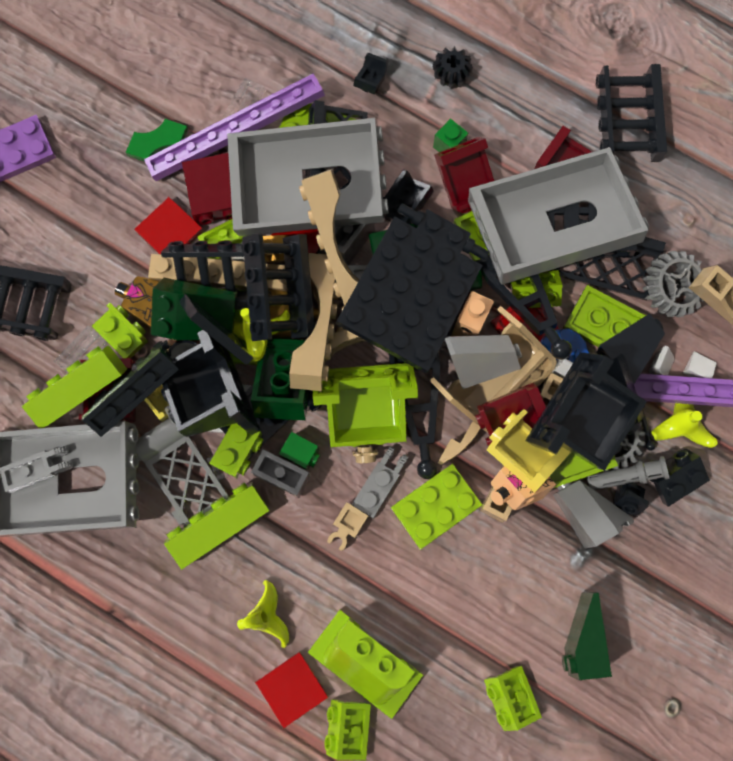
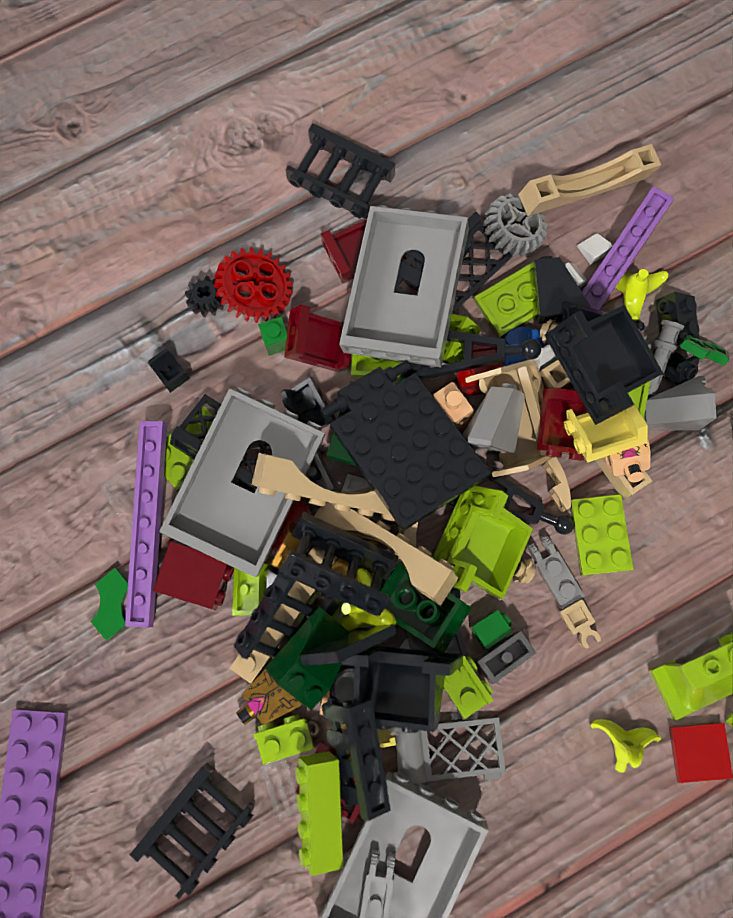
camera: 60 degrees left, 0 degrees up
(167, 225) = (207, 639): red tile -> none
(215, 525) = (520, 744): lime brick -> none
(468, 108) = (253, 284): none -> red gear
(659, 508) = (704, 349): none -> green tile

